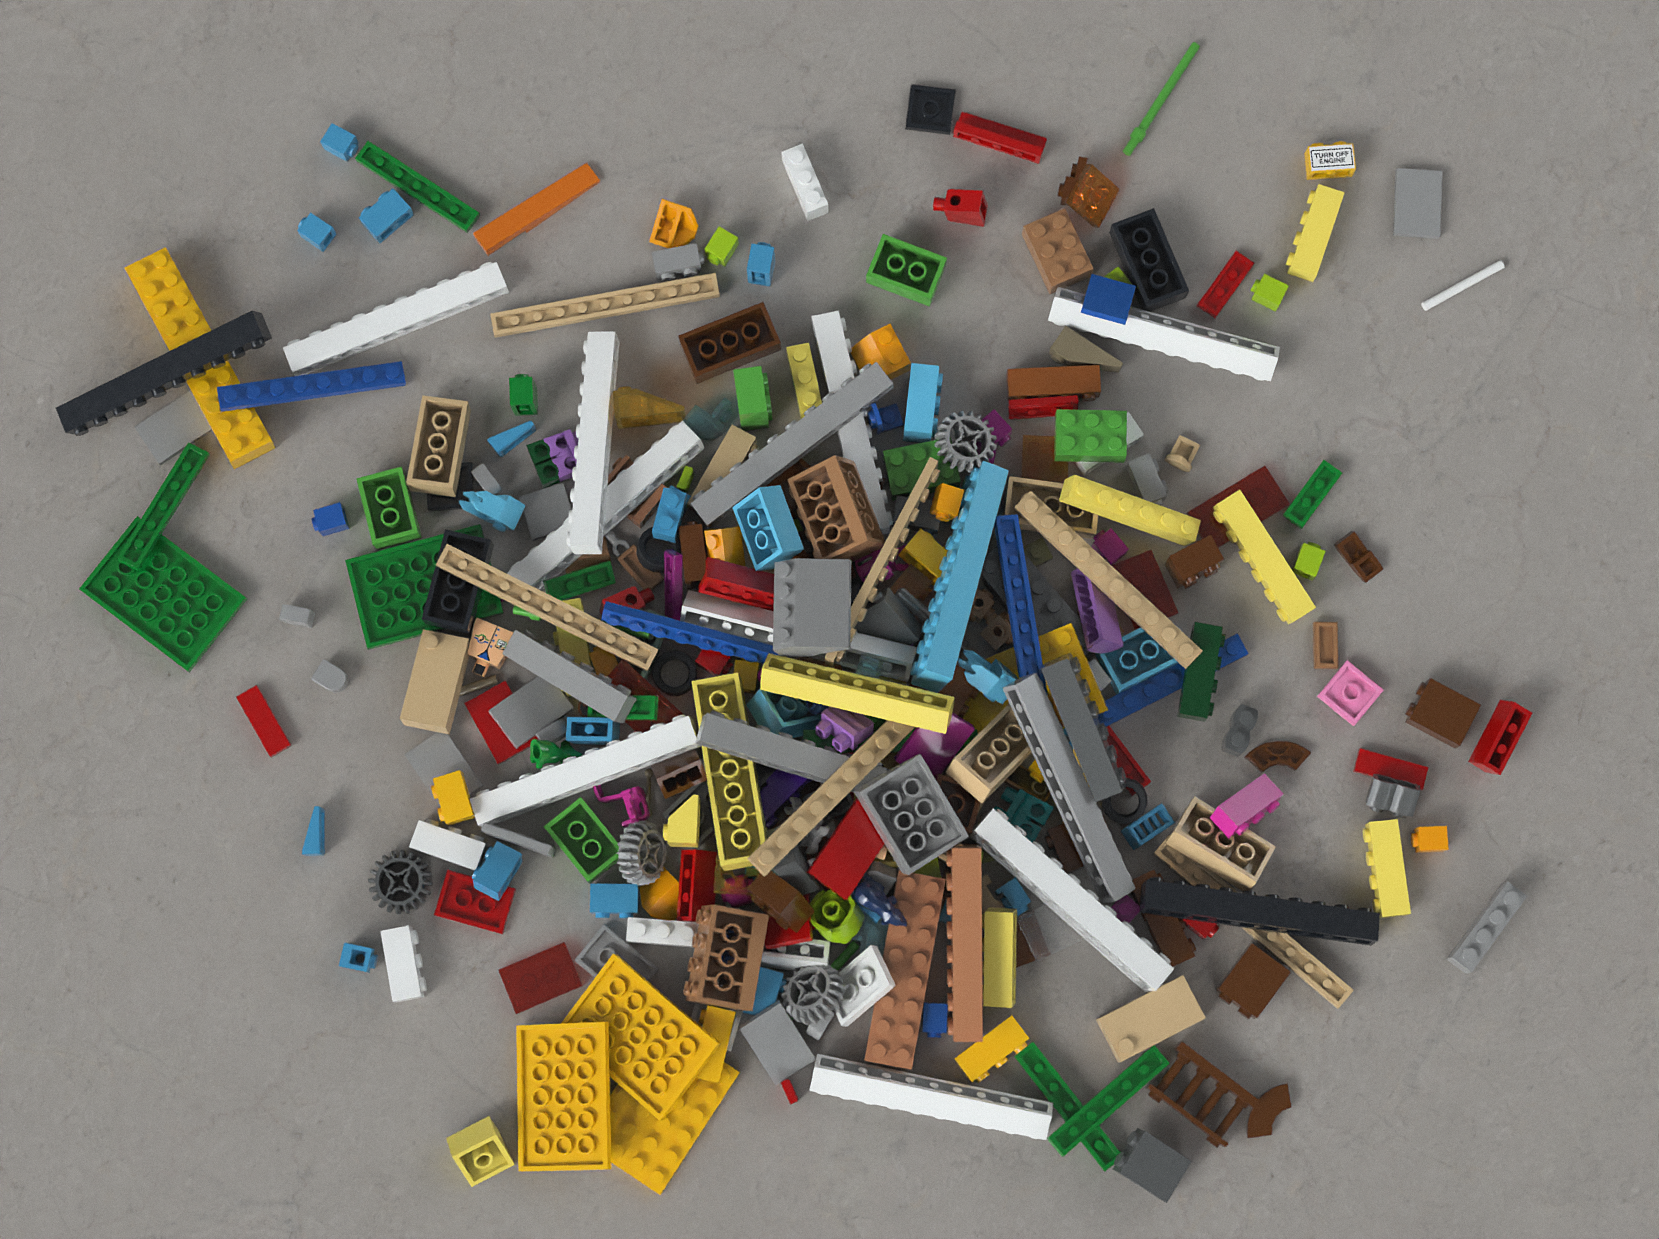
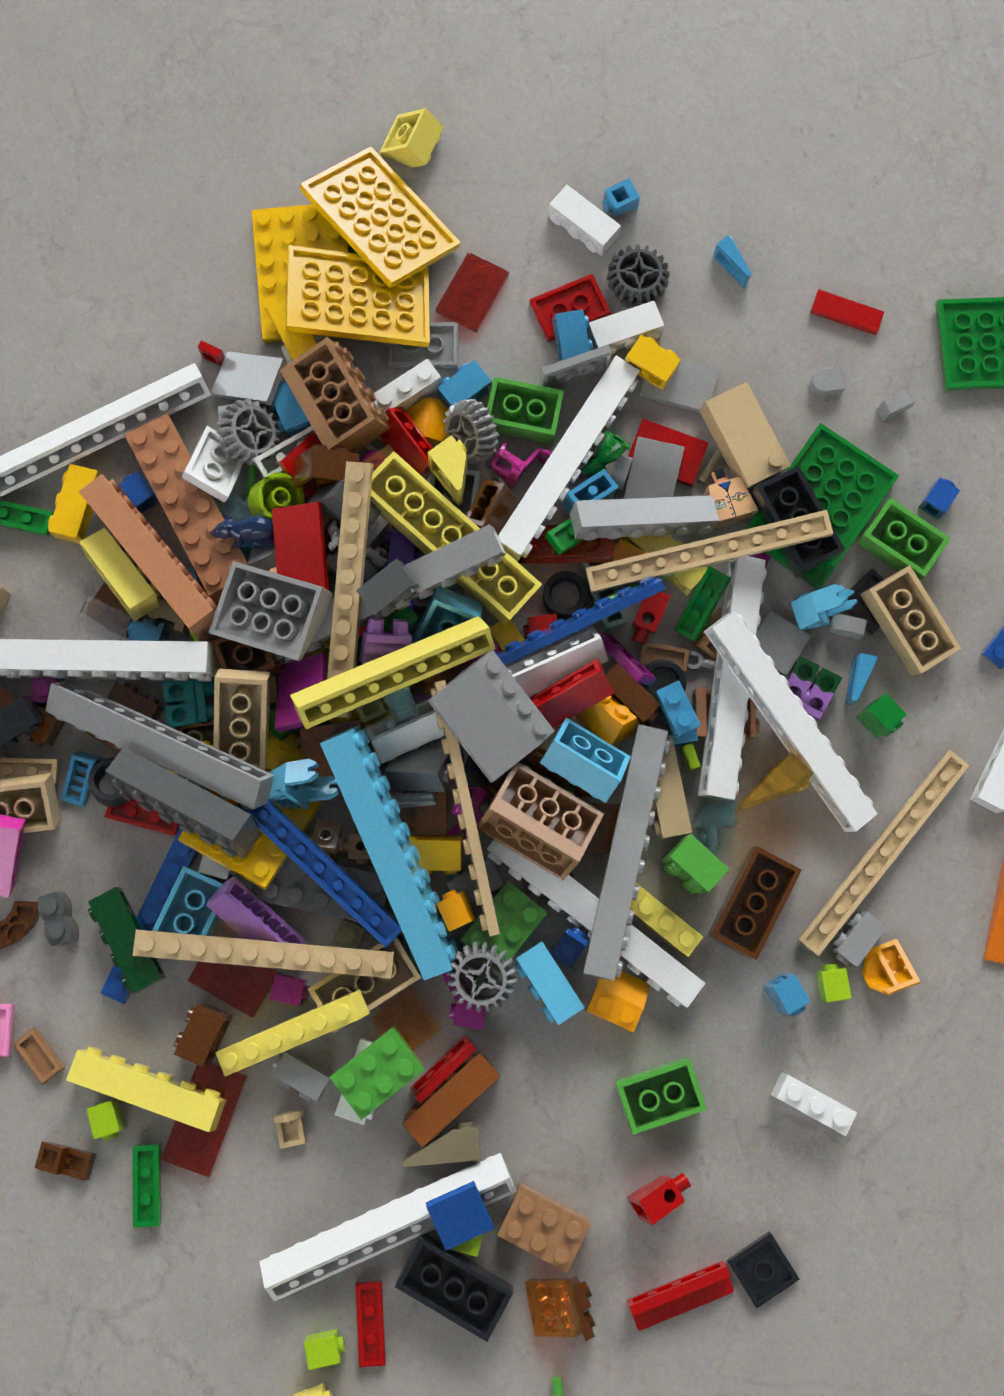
camera: 135 degrees right, 0 degrees up
(811, 756) = (388, 588): none -> dark grey brick

